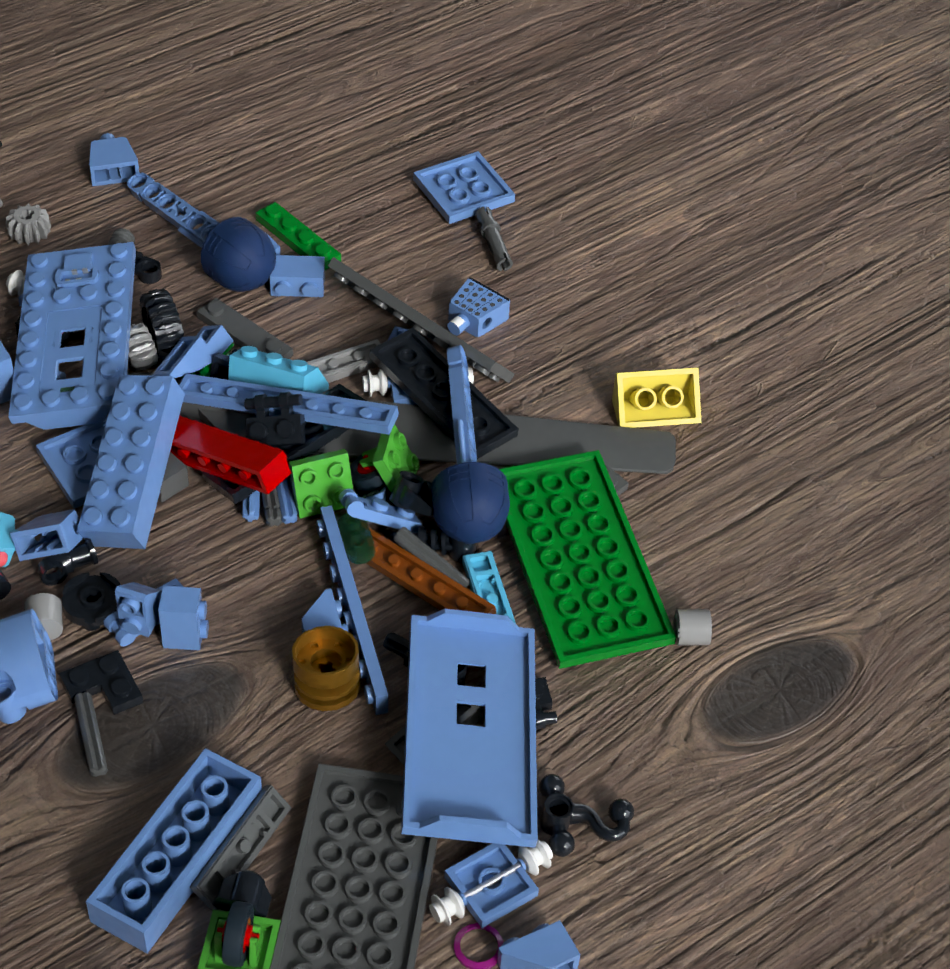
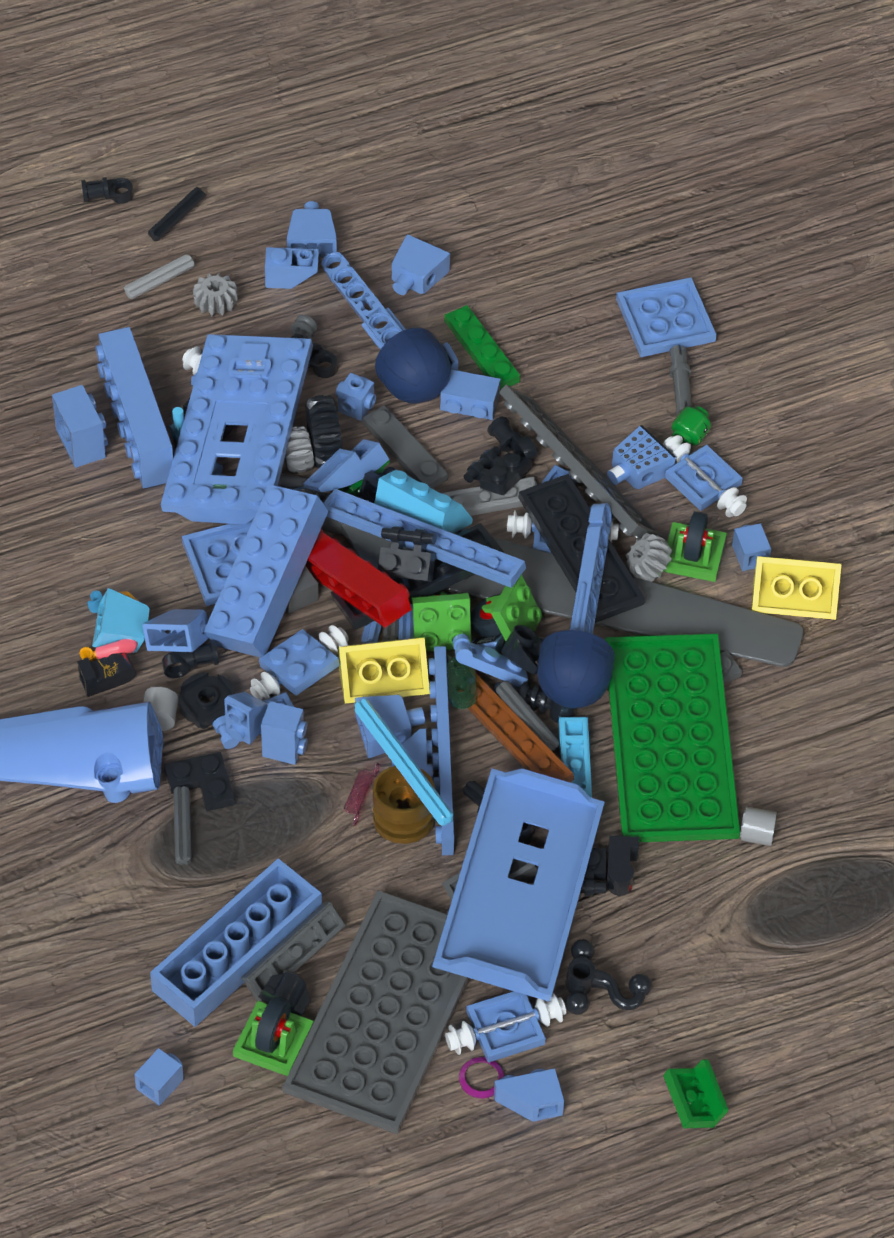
camera: 15 degrees right, 5 degrees up
(12, 336) = (175, 428): none -> medium azure bar
(96, 190) = (289, 266): none -> medium blue slope
(183, 546) = (298, 662): none -> medium blue plate
(187, 292) = (355, 396): none -> medium blue brick
(221, 175) = (418, 266): none -> medium blue torso
(270, 678) = (356, 783): none -> clear pink piece
(272, 539) = (384, 669): none -> light yellow slope
(286, 591) = (397, 718): none -> medium blue torso
(320, 624) = (403, 762): none -> medium azure axle
(341, 340) = (503, 473): none -> black plate
(359, 315) = (511, 440): none -> black connector
(510, 391) = (648, 557): none -> light grey gear
(515, 273) = (692, 425): none -> green head
(541, 316) = (704, 477): none -> medium blue plate
(550, 378) = (695, 549): none -> bright green plate
(566, 697) = (619, 871): none -> black leg
(601, 367) = (749, 543): none -> medium blue brick
(717, 919) = (696, 1095): none -> green bracket

